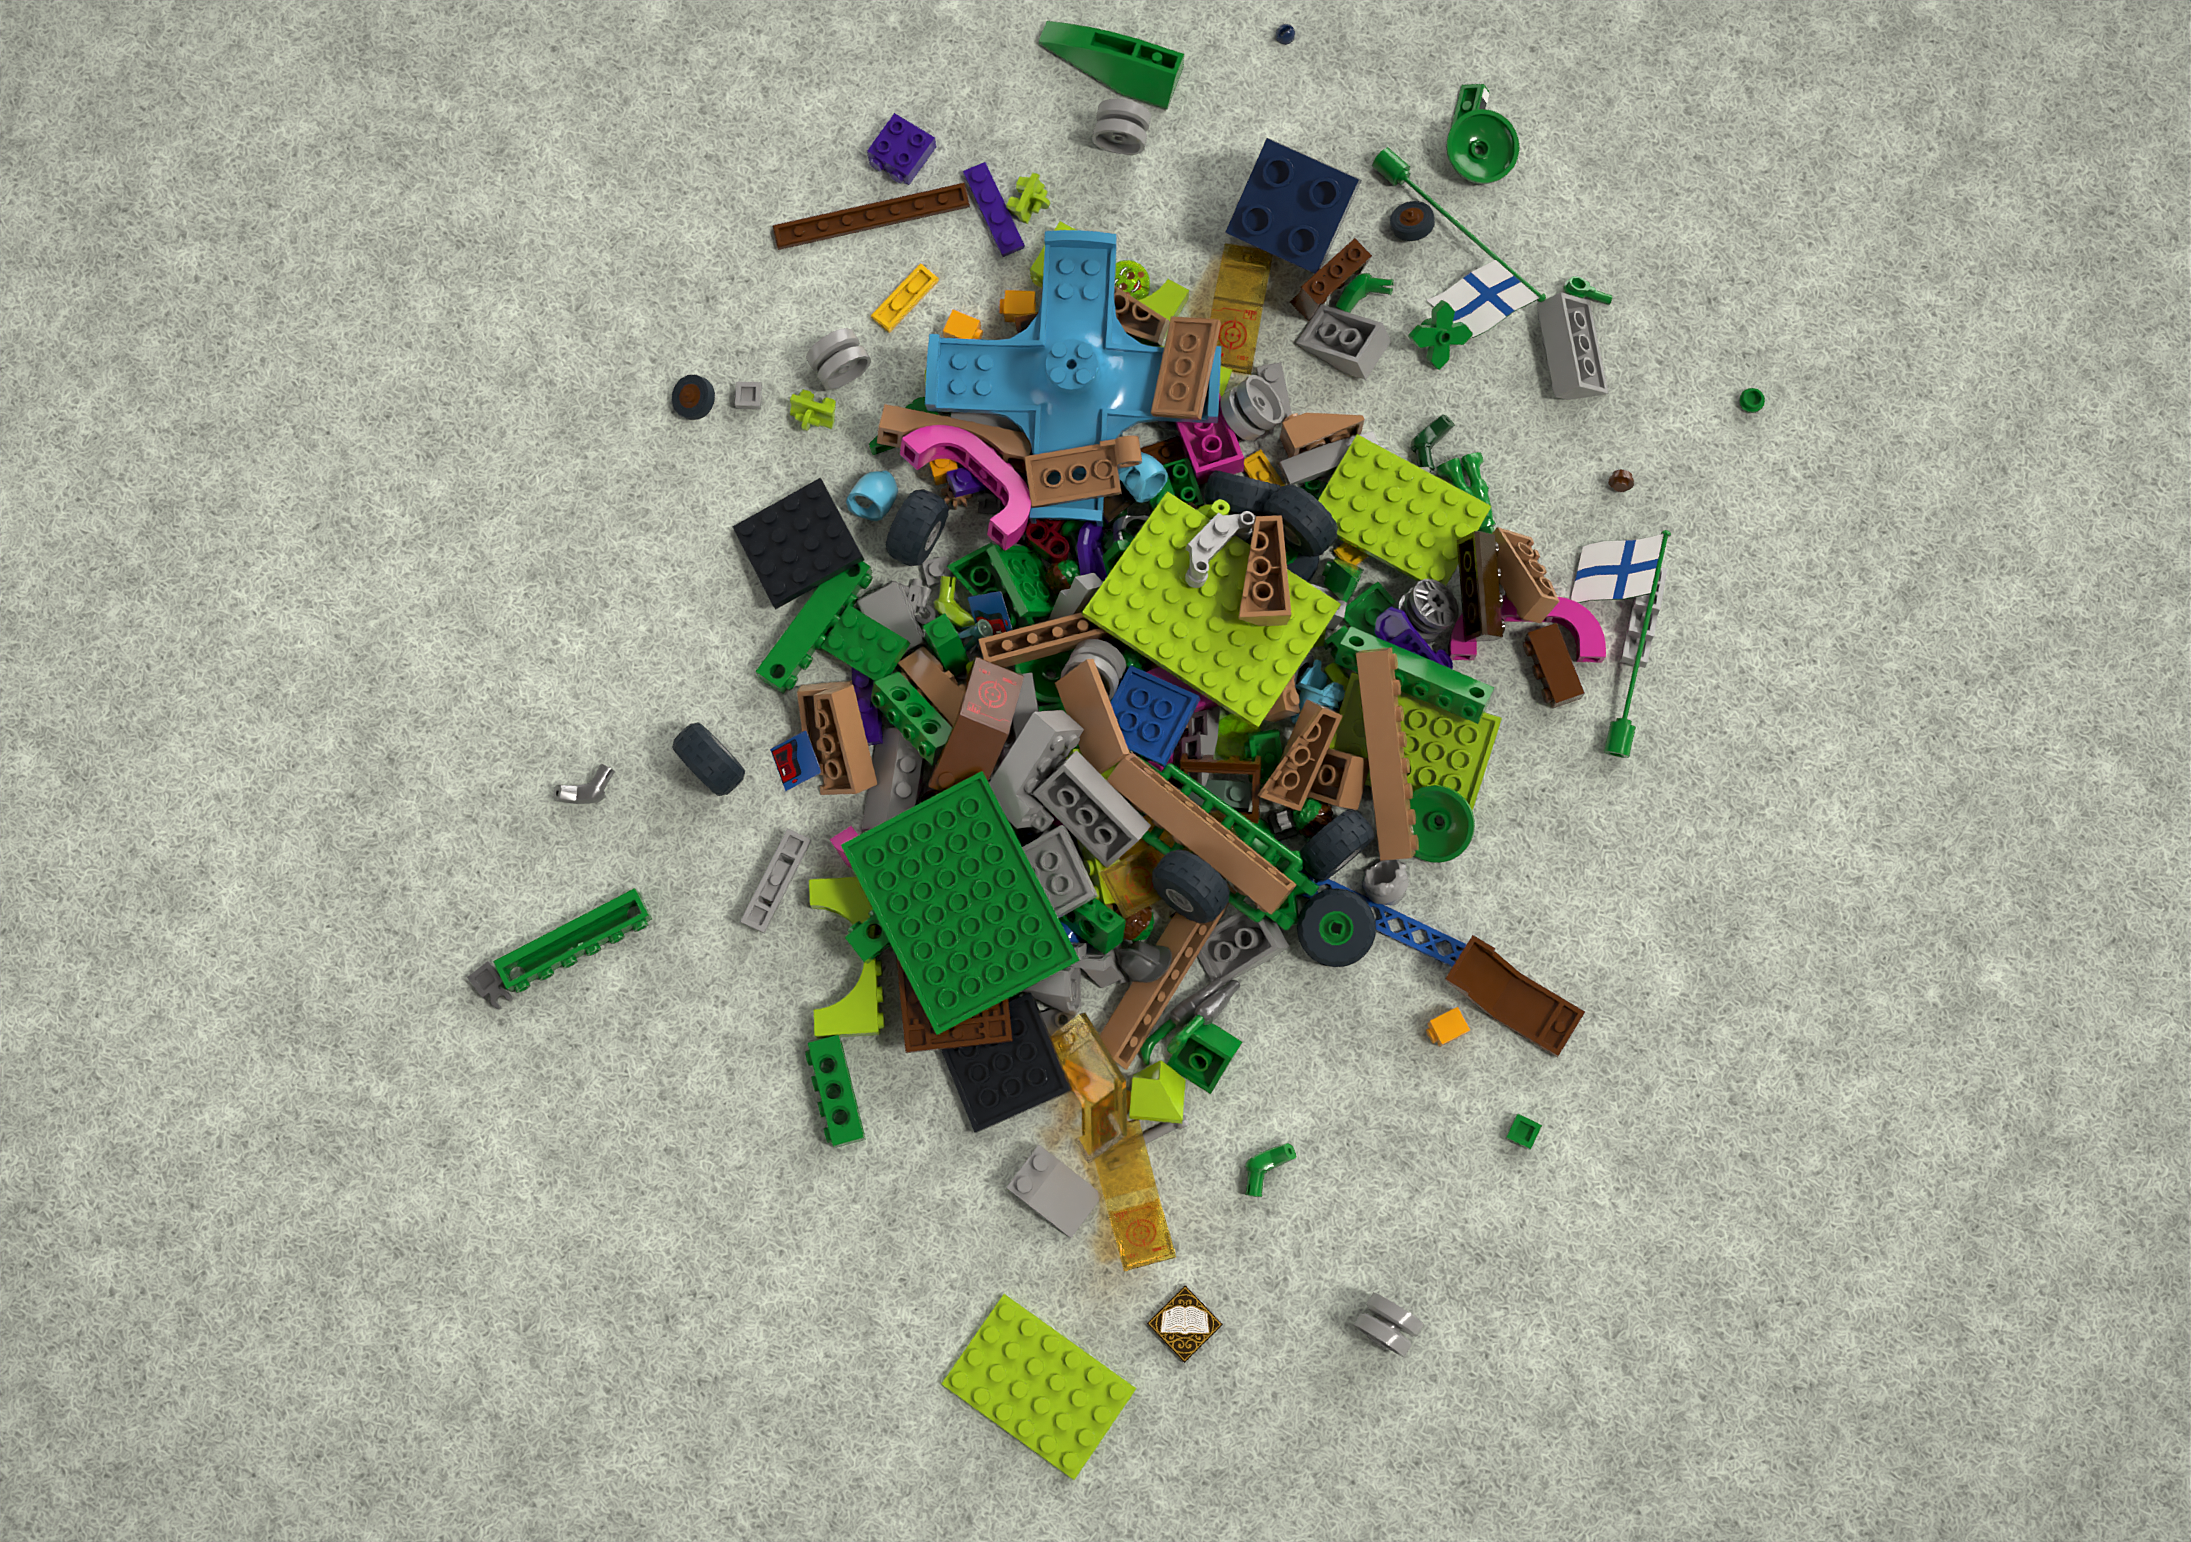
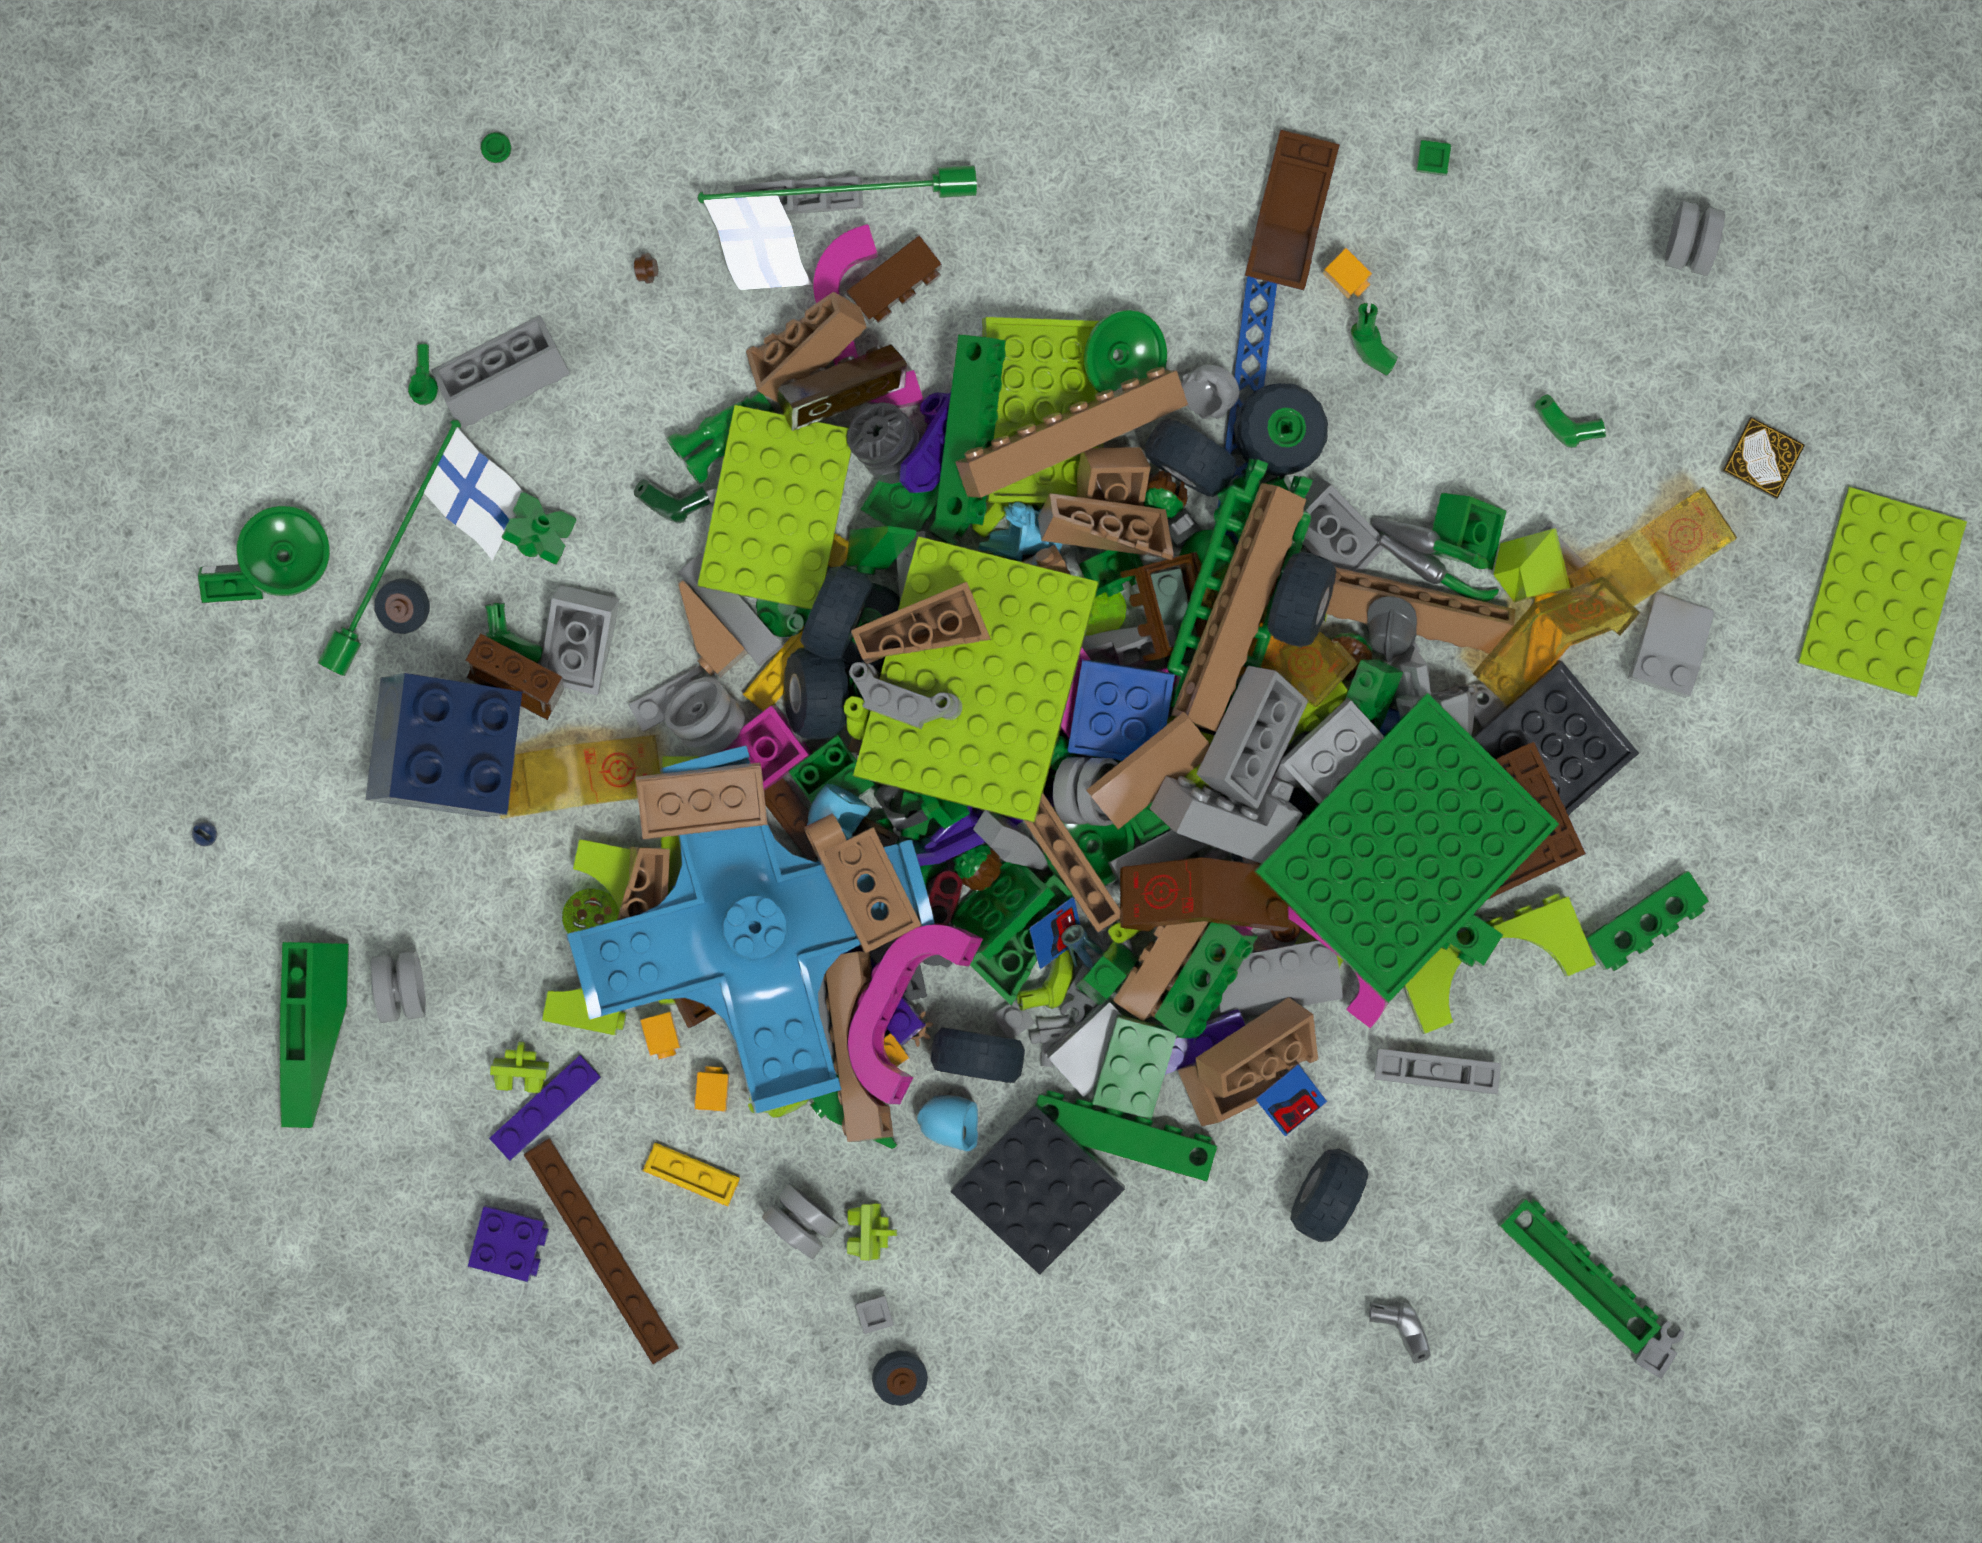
camera: 115 degrees left, 10 degrees up
(1386, 1025) = (1369, 343): none -> green arm

